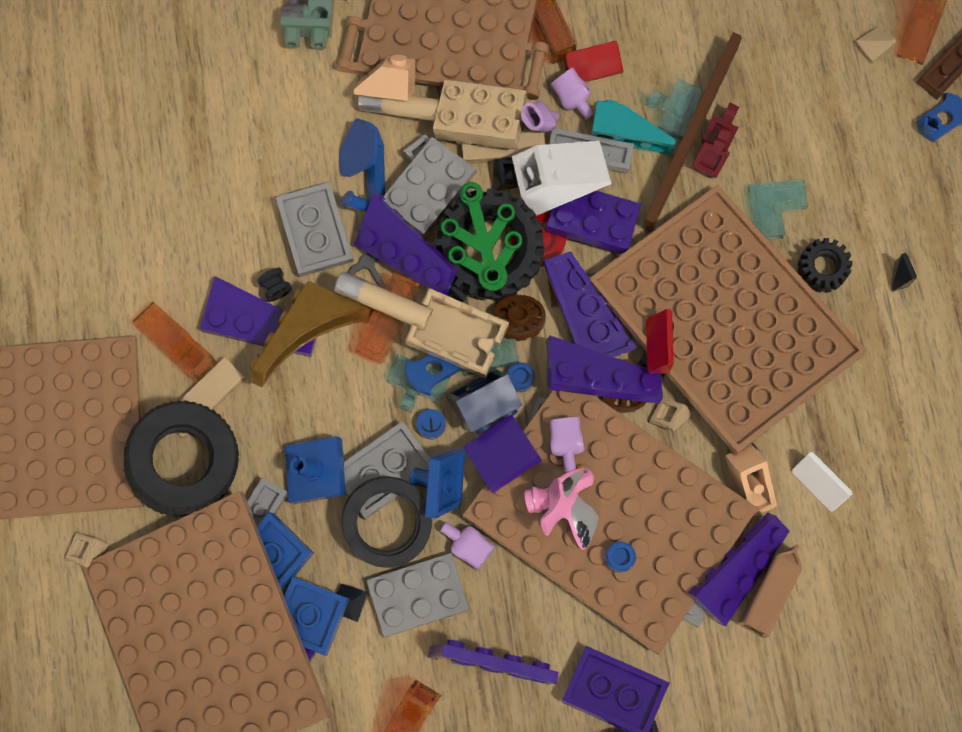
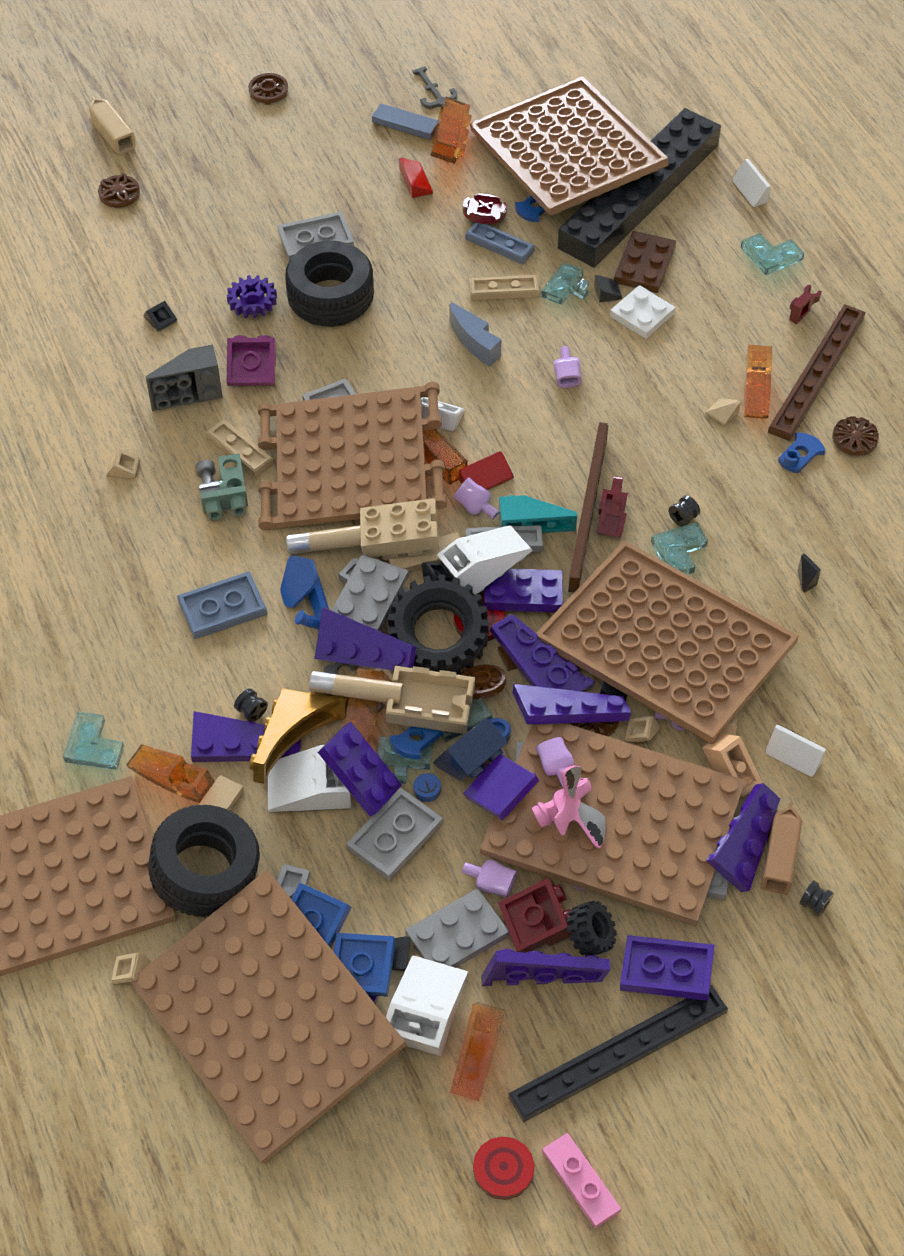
camera: 10 degrees left, 20 degrees down
(96, 289) = (87, 747): none -> clear light blue plate
(274, 154) = (222, 605): none -> sand blue tile
(314, 229) = (275, 654): light grey plate -> none
(314, 389) = (305, 783): none -> white slope
(315, 470) = (331, 847): blue tile -> none
(363, 395) = (359, 769): none -> dark purple plate
(363, 670) = (426, 1004): none -> white slope
(390, 79) = (311, 518): light nougat slope -> none
(396, 556) = (430, 844): black tyre -> none
(442, 482) = (453, 822): blue tile -> none
(484, 240) = (432, 617): green plant -> none
(502, 602) = (536, 916): none -> dark red plate
(538, 638) = (591, 928): none -> black tyre
(539, 117) = (451, 519): lavender piece -> none
(620, 557) = (635, 845): blue tile -> none
(660, 342) = (615, 665): red slope -> none
(677, 108) = (570, 491): clear light blue plate -> none
(790, 655) = (816, 898): none -> black wheel
(793, 163) = (684, 510): none -> black wheel
(830, 250) = (742, 571): black tyre -> none

